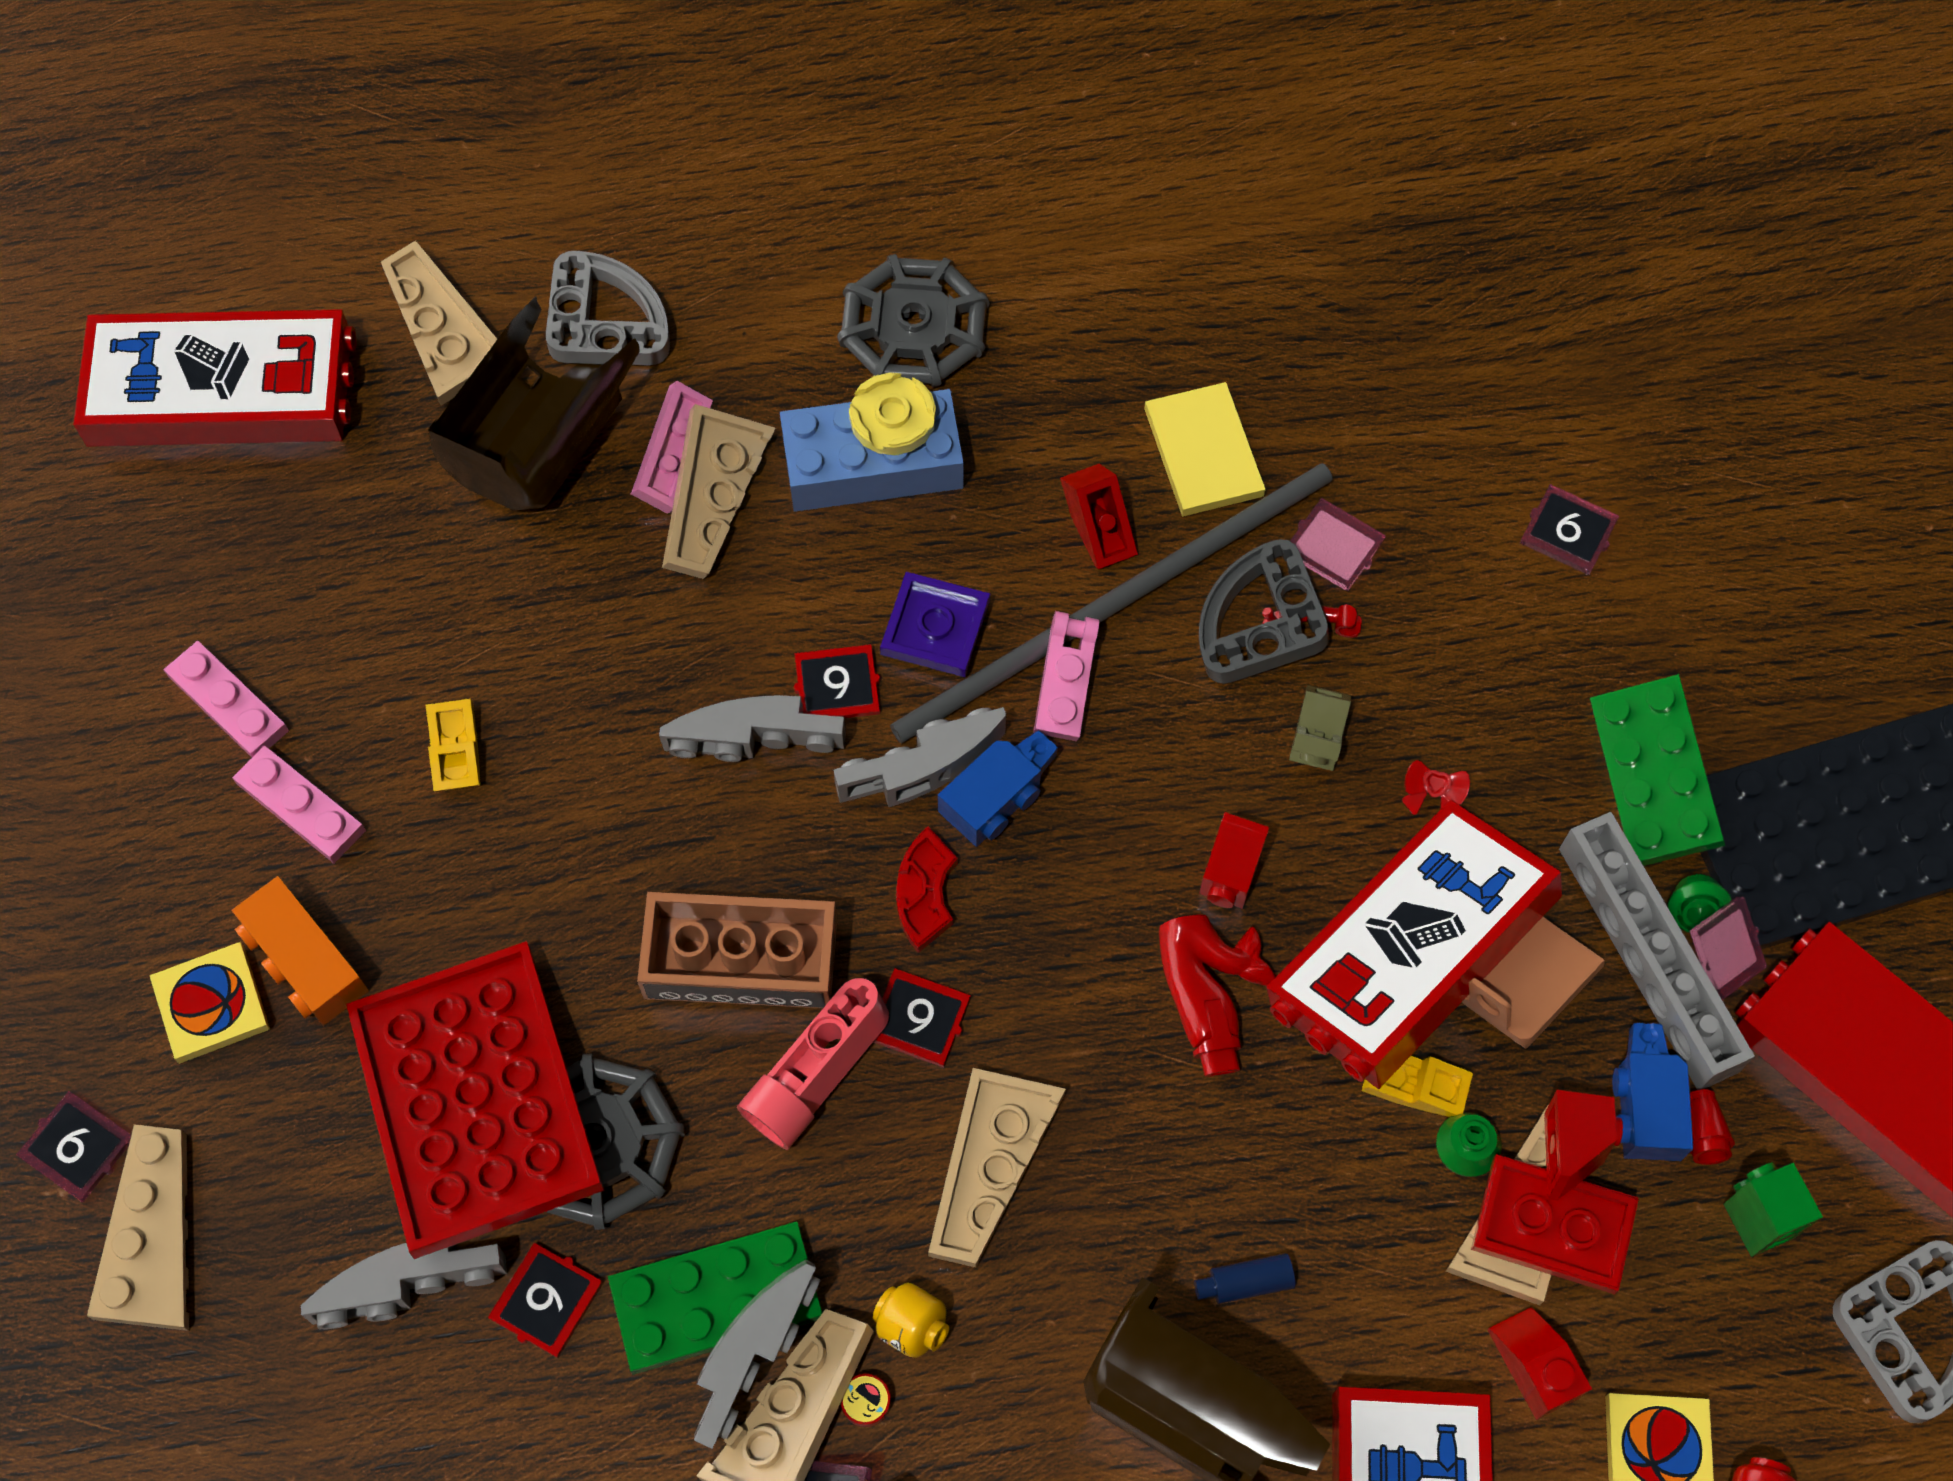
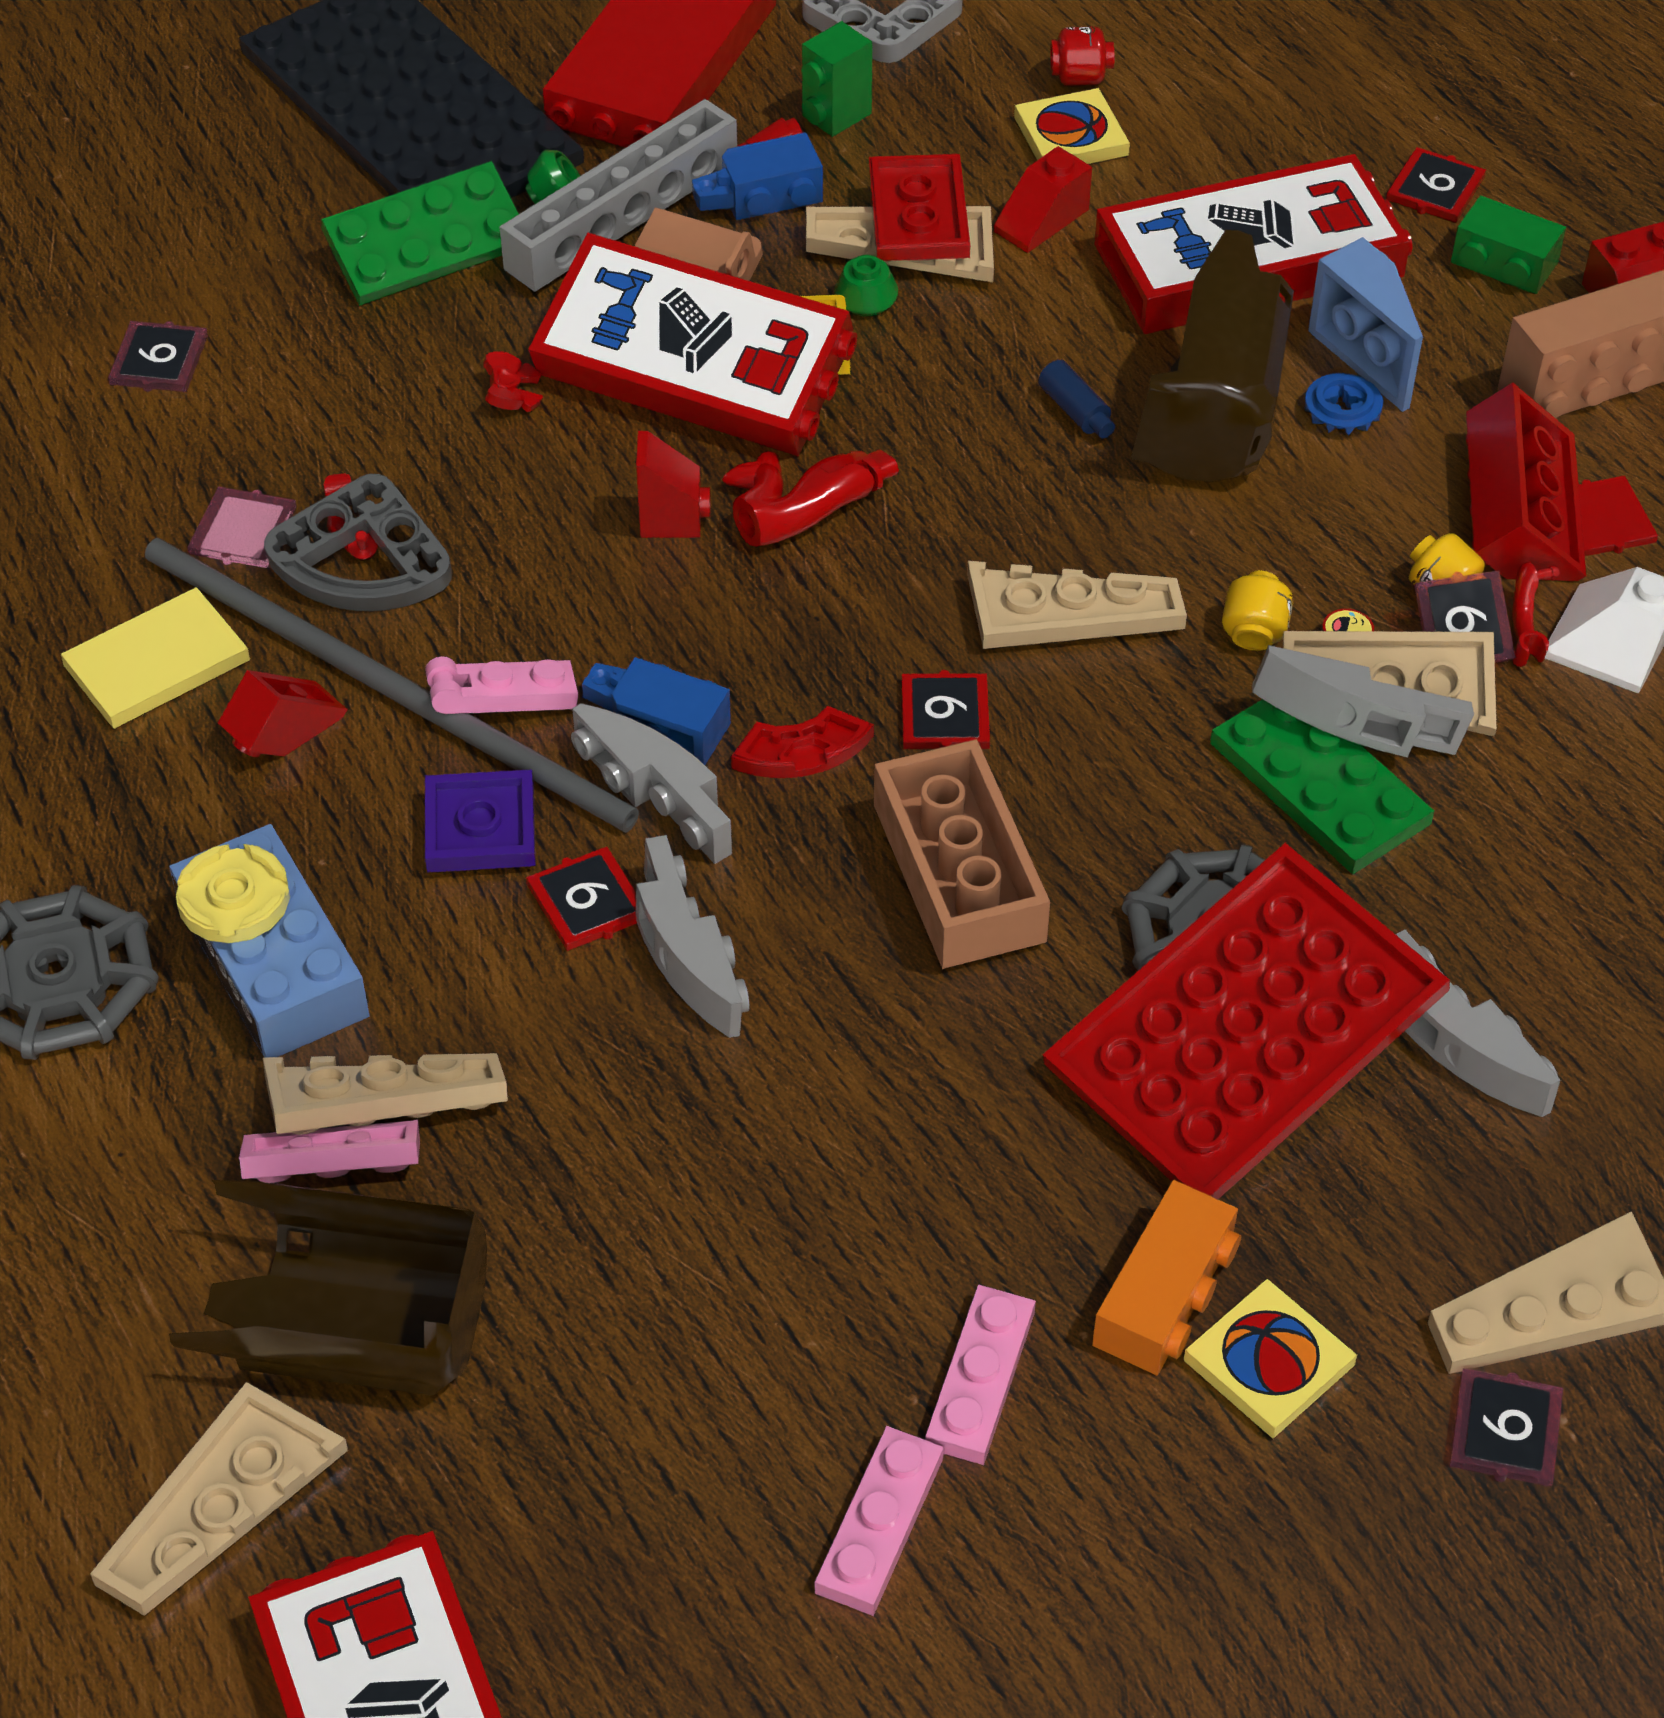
camera: 110 degrees left, 15 degrees down
(453, 745) = (839, 1236): yellow slope -> none
(545, 1300) = (1413, 905): piece -> none
(587, 332) = (182, 1313): light grey beam -> none
(783, 1104) = (1104, 764): coral beam -> none
(1320, 728) = (483, 474): olive brick -> none
(1578, 1138) = (846, 189): red slope -> none
(1729, 947) = (581, 146): clear pink piece -> none

